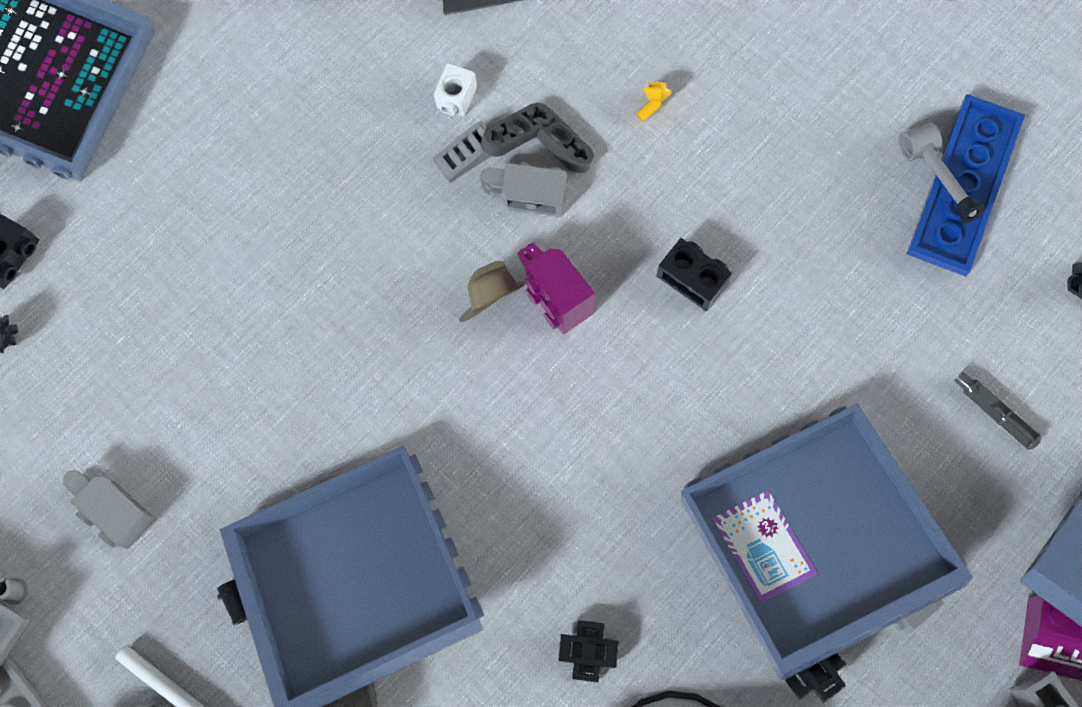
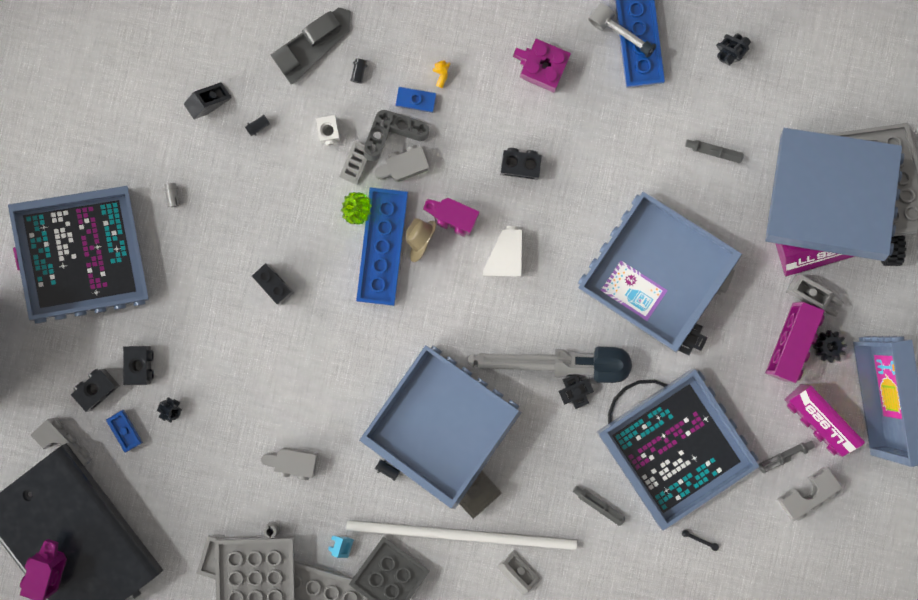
camera: 40 degrees left, 15 degrees up
(90, 680) = (342, 546): none -> medium azure tile
(201, 64) = (171, 194): none -> light grey pin
(249, 244) = (272, 284): none -> black brick
(367, 39) = (257, 125): none -> black pin
(427, 206) = (356, 208): none -> clear neon green gear
(430, 280) = (382, 247): none -> blue plate
(542, 41) = (358, 70): none -> black pin
(597, 117) = (415, 99): none -> blue plate
(598, 386) = (506, 255): none -> white slope
(659, 634) = (606, 363): none -> piece
(801, 159) = (539, 54): none -> magenta hinge

